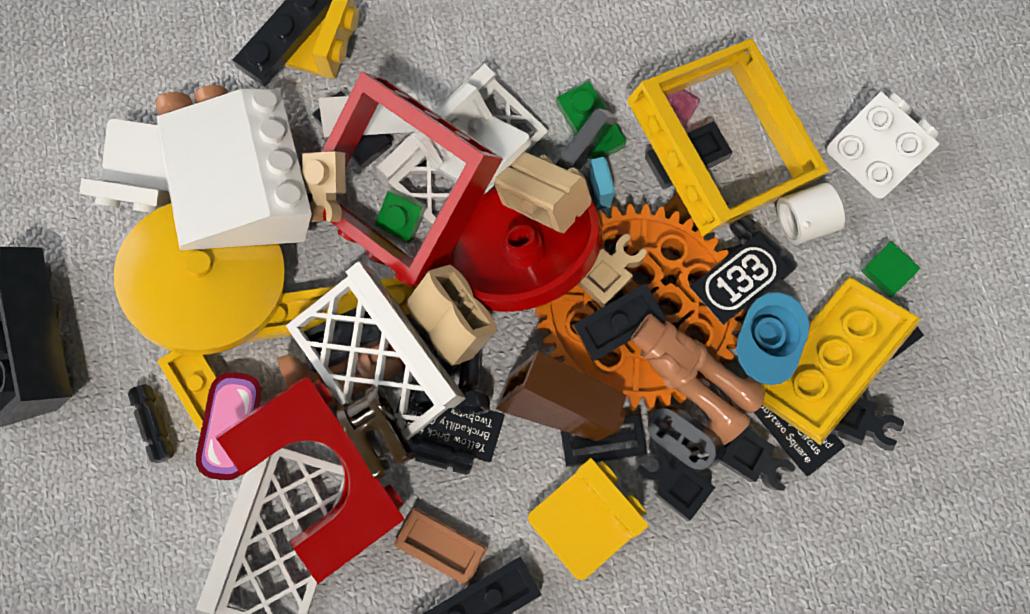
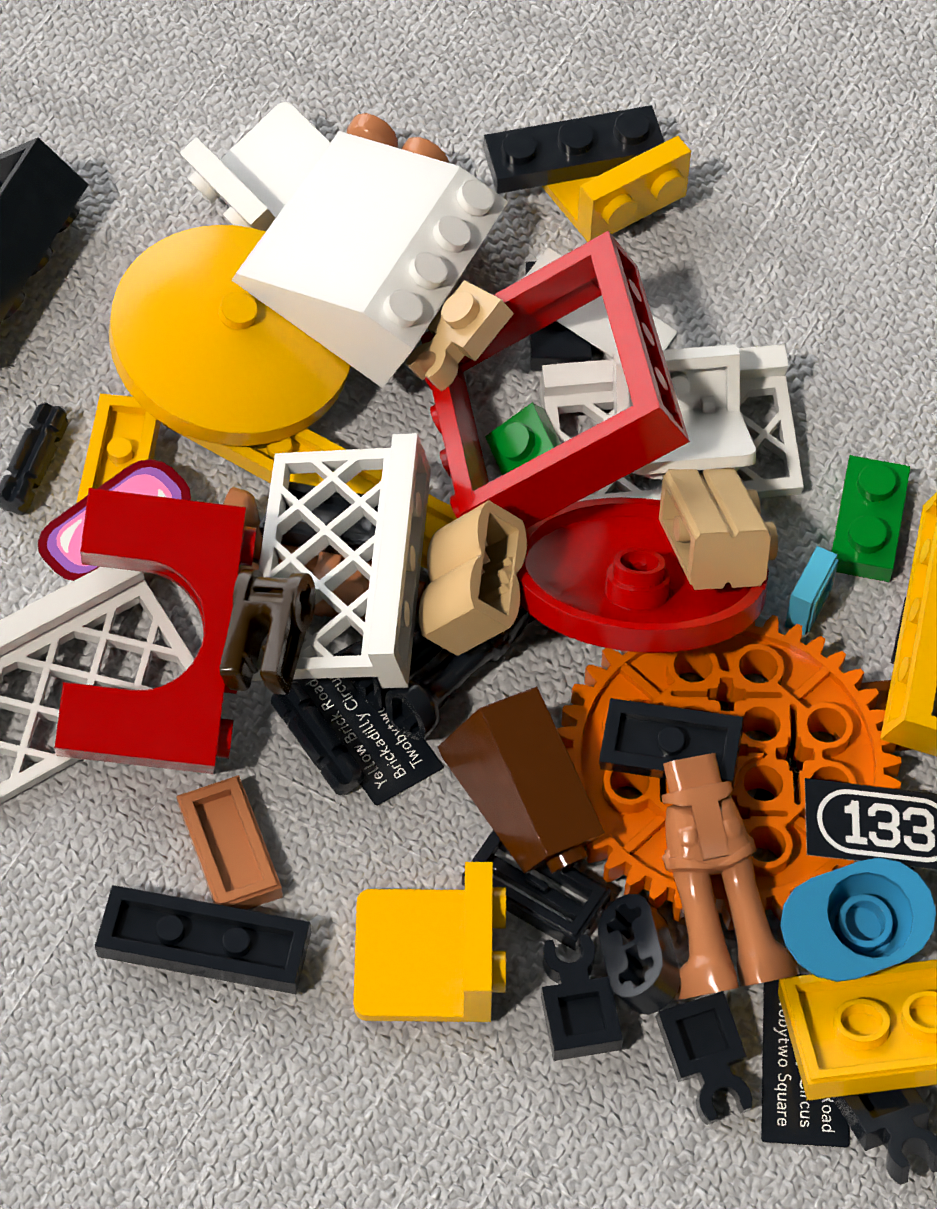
camera: 40 degrees right, 15 degrees down
(587, 140) = (832, 523): black tile -> none
(610, 273) = (712, 683): tan plate -> none

